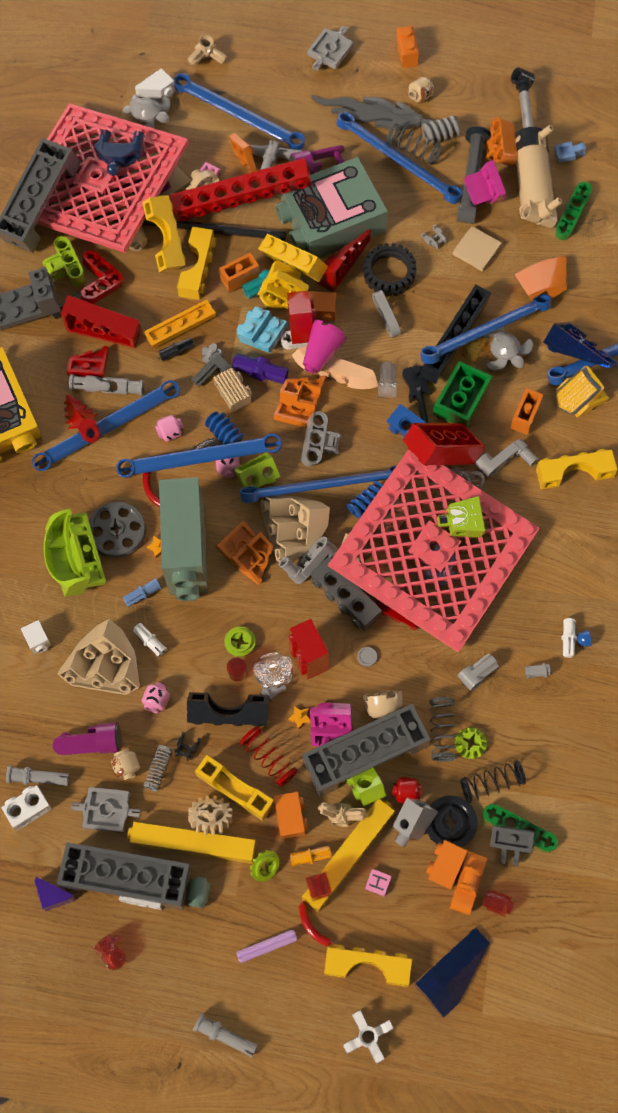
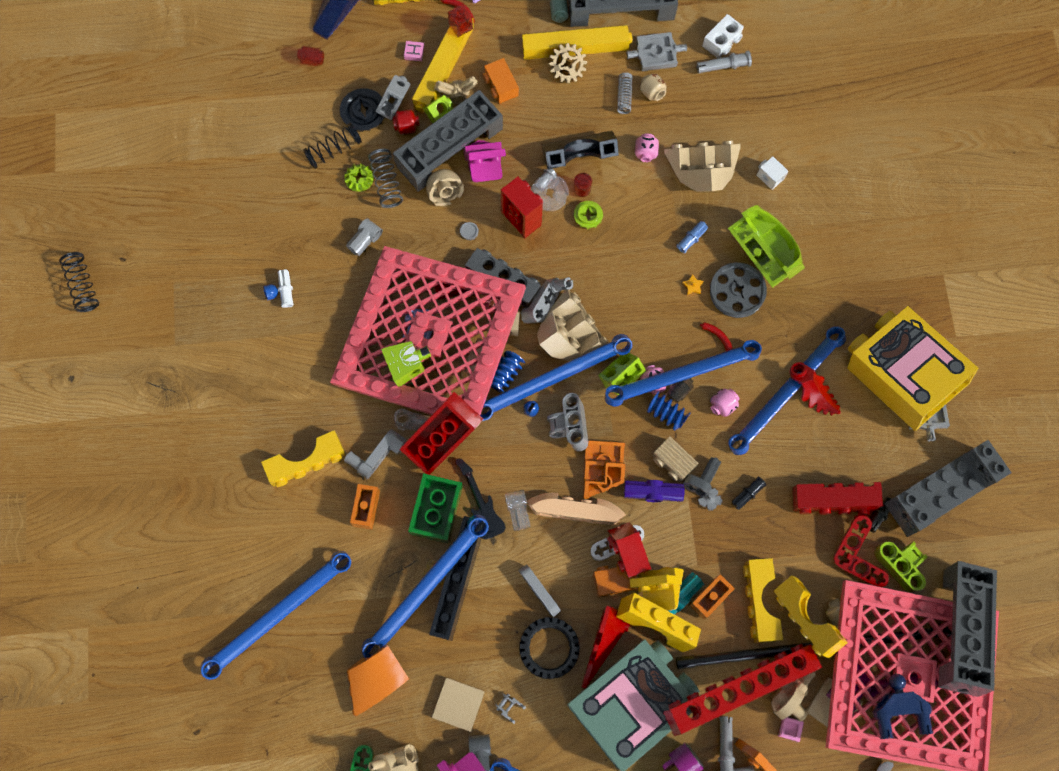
camera: 160 degrees right, 5 degrees up
(88, 363) = (831, 453): red wing -> none
(95, 383) = (801, 434): light grey piece -> none
(100, 738) = (676, 101): magenta piece -> none
(149, 639) = (669, 196): white axle -> none
(180, 323) = (754, 523): light orange plate -> none
(183, 538) = (669, 274): sand green brick -> none
(193, 749) = (612, 117): black piece -> none
(233, 788) = (572, 94): yellow arch -> none
(246, 551) = (609, 299): orange slope -> none
(261, 329) = (666, 535): medium azure plate -> none
(271, 866) = (510, 37): lime gear -> none
(287, 776) = (517, 103): red piece -> none
(300, 717) = (515, 165): light orange piece -> none
(310, 856) = (475, 56): light orange axle -> none
(322, 345) = (595, 517): dark pink cone -> none
(353, 470) = (534, 411): none -> blue hinge
(400, 418) = (487, 471): blue brick -> none
(447, 864) = (358, 72): orange brick -> none
(468, 883) = (338, 65): orange piece -> none
(506, 348) = (399, 578): light grey animal -> none
(512, 839) = (307, 102): dark grey hinge -> none
(521, 824) = (304, 115): green beam -> none
(537, 671) = (309, 252): light grey pin -> none
(571, 341) = (326, 599): clear blue wedge -> none
(581, 393) = (312, 545): yellow piece -> none

